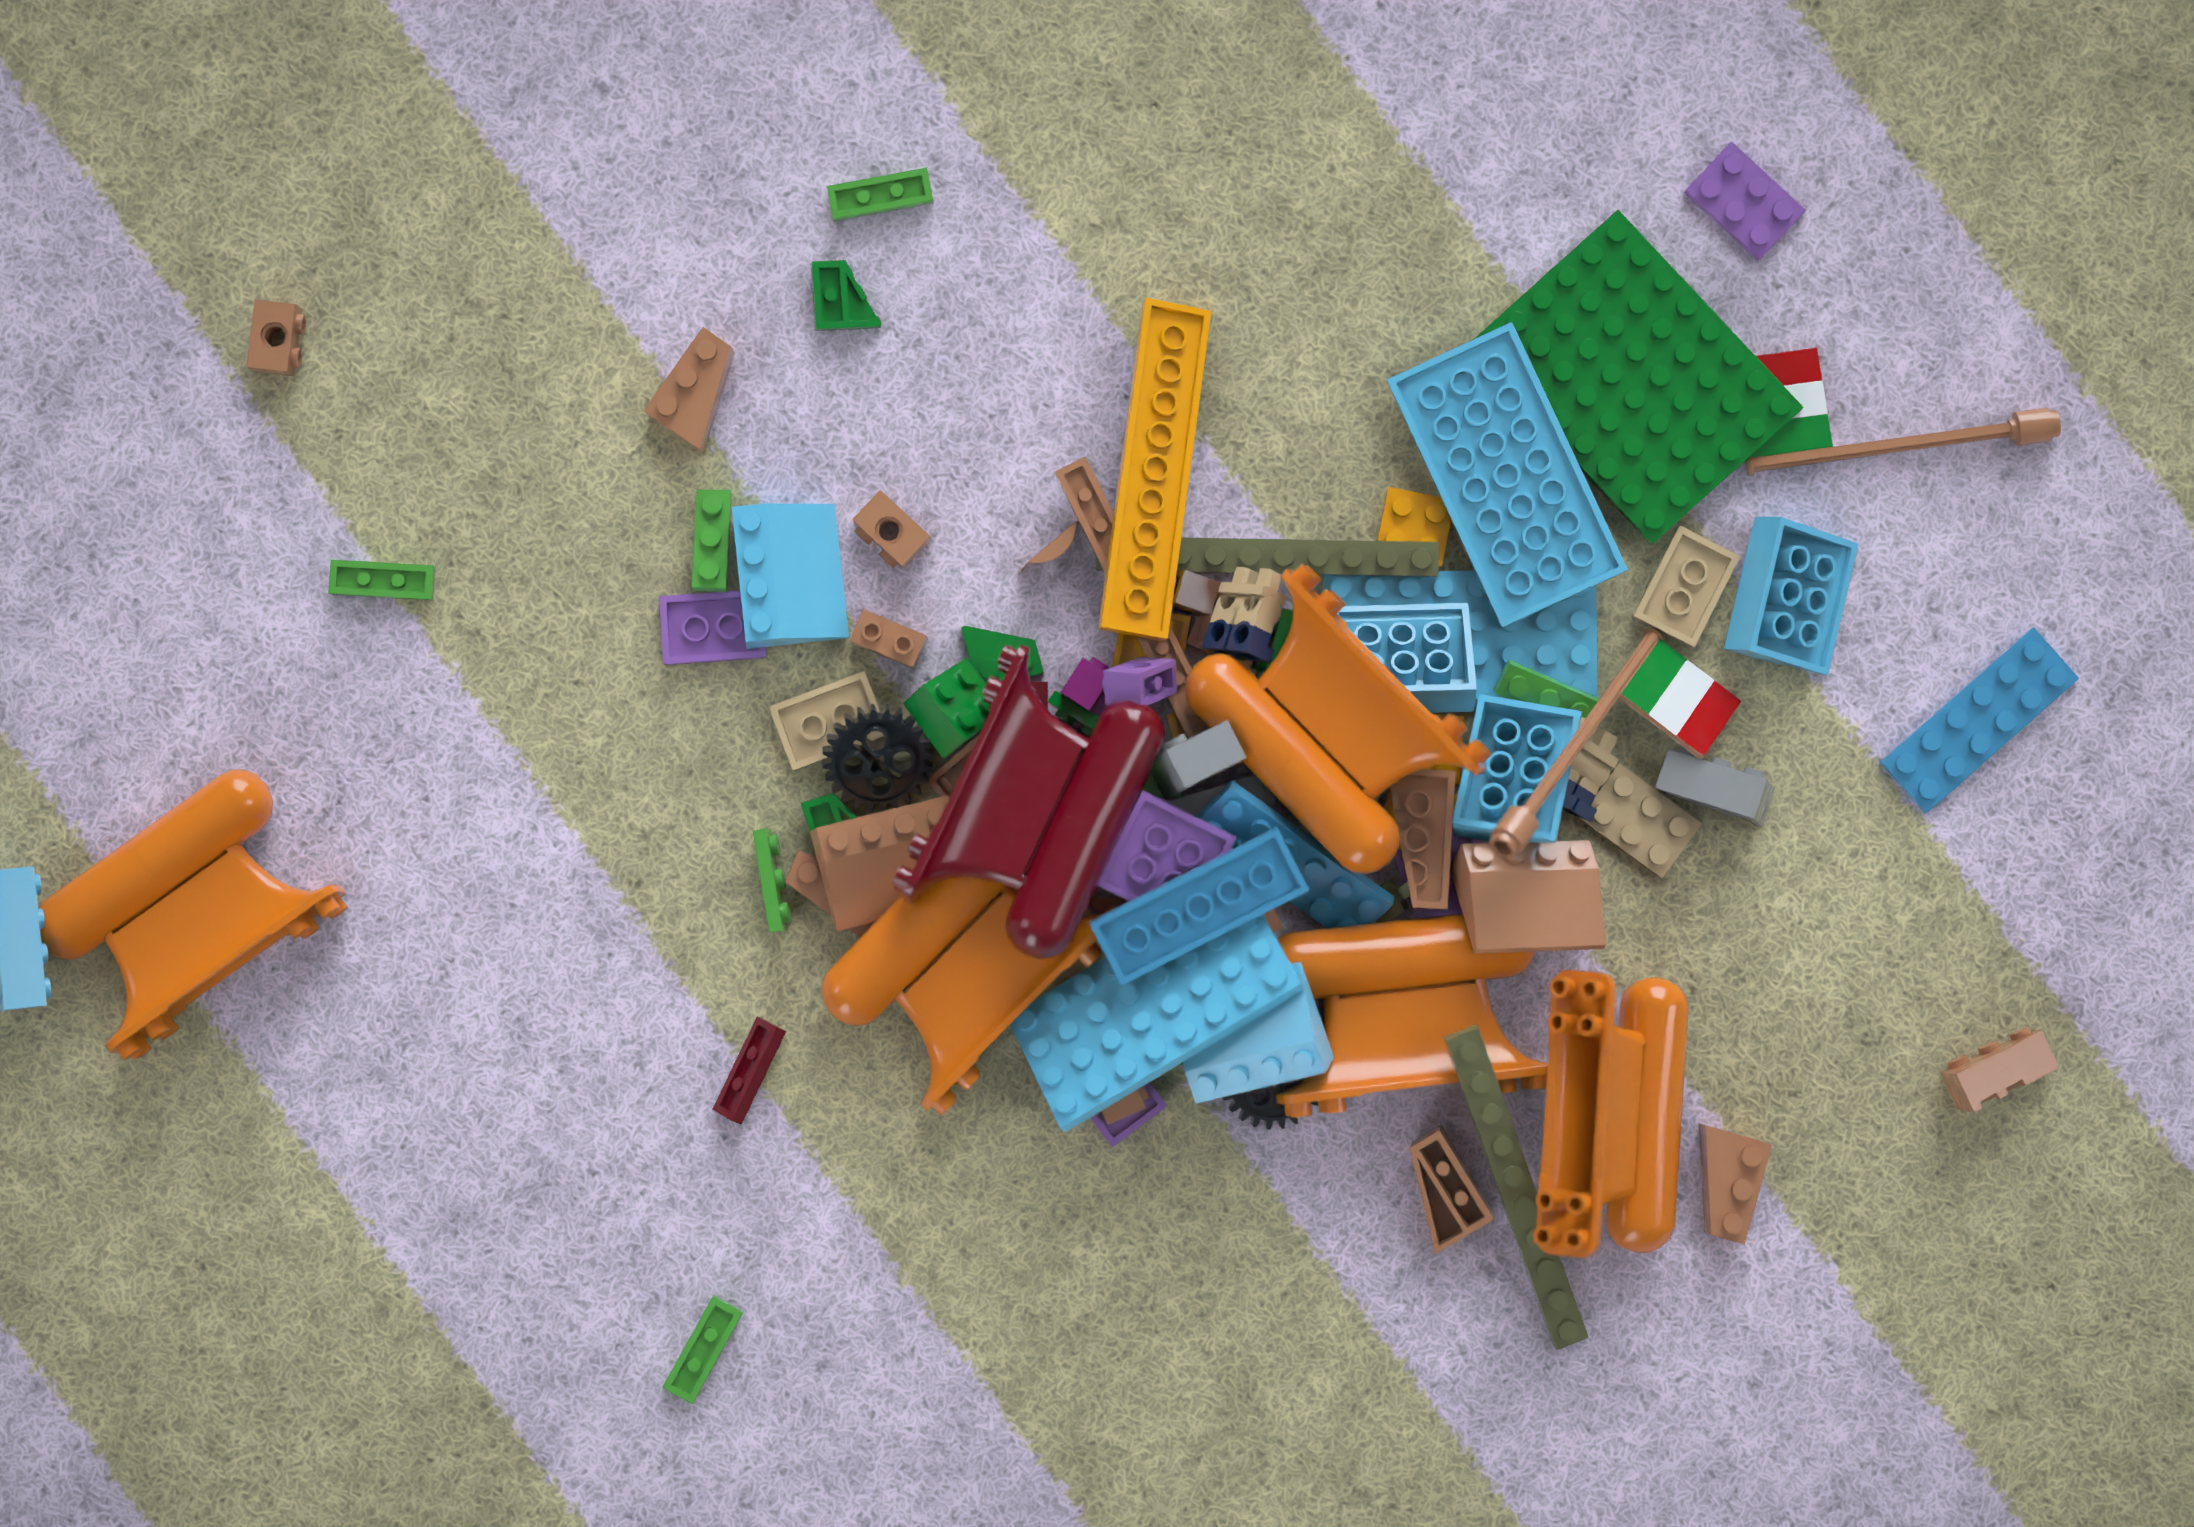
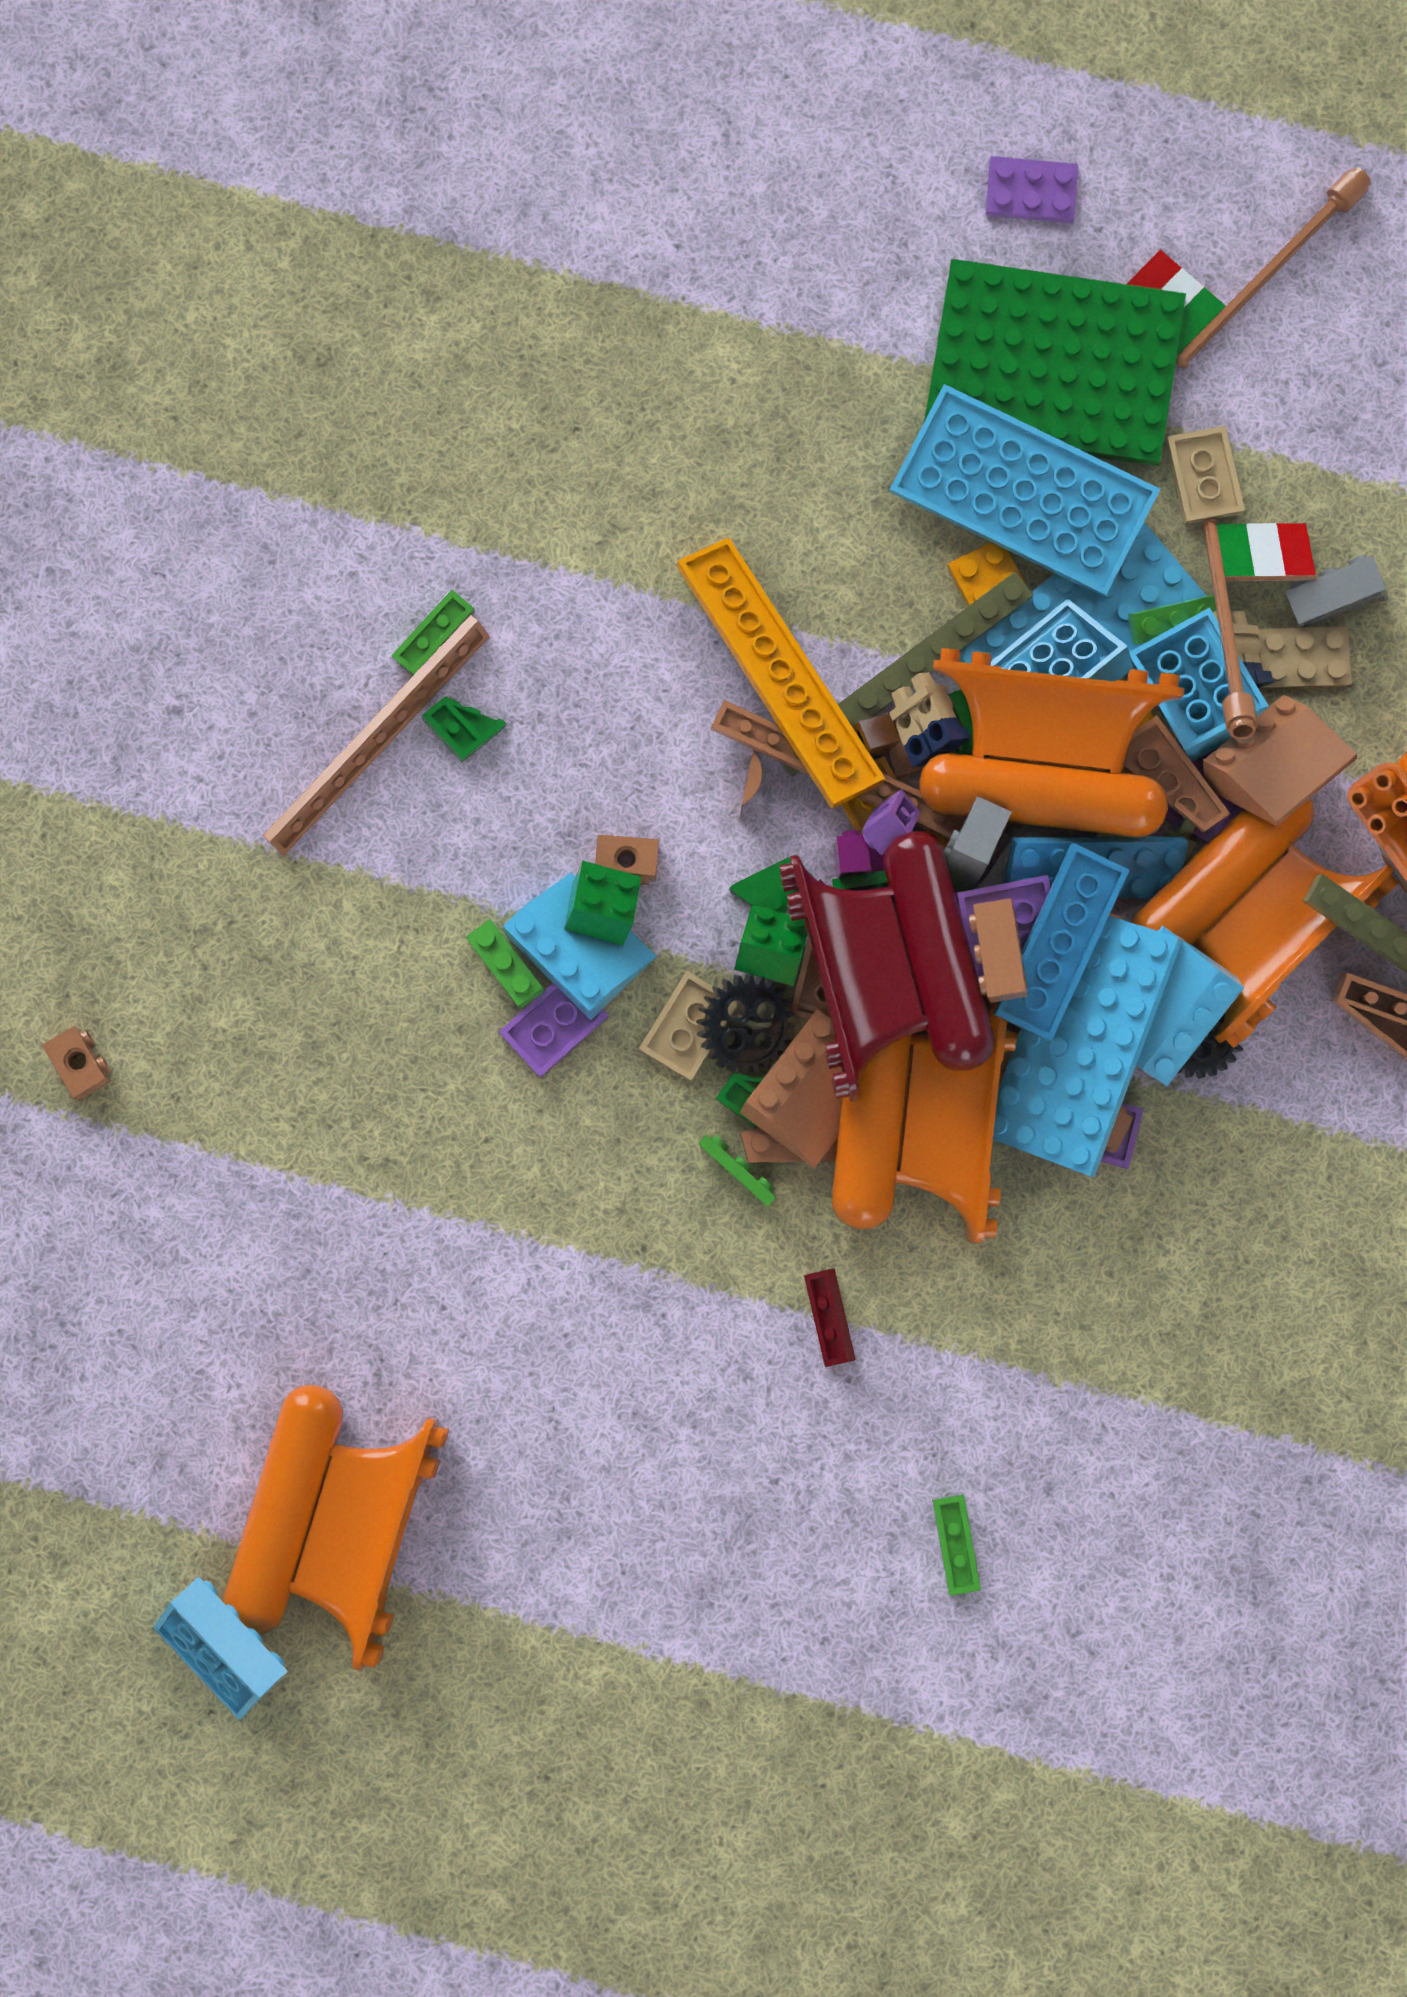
camera: 40 degrees left, 5 degrees down
(381, 580) = (289, 1175): bright green plate -> none
(693, 389) = (408, 870): nougat wedge -> none
(758, 248) = (376, 735): none -> nougat plate
(835, 554) = (602, 903): none -> green brick
(888, 639) = (686, 935): nougat brick -> none
(1134, 871) = (999, 950): none -> nougat brick
(1791, 594) = (1279, 426): medium azure slope -> none

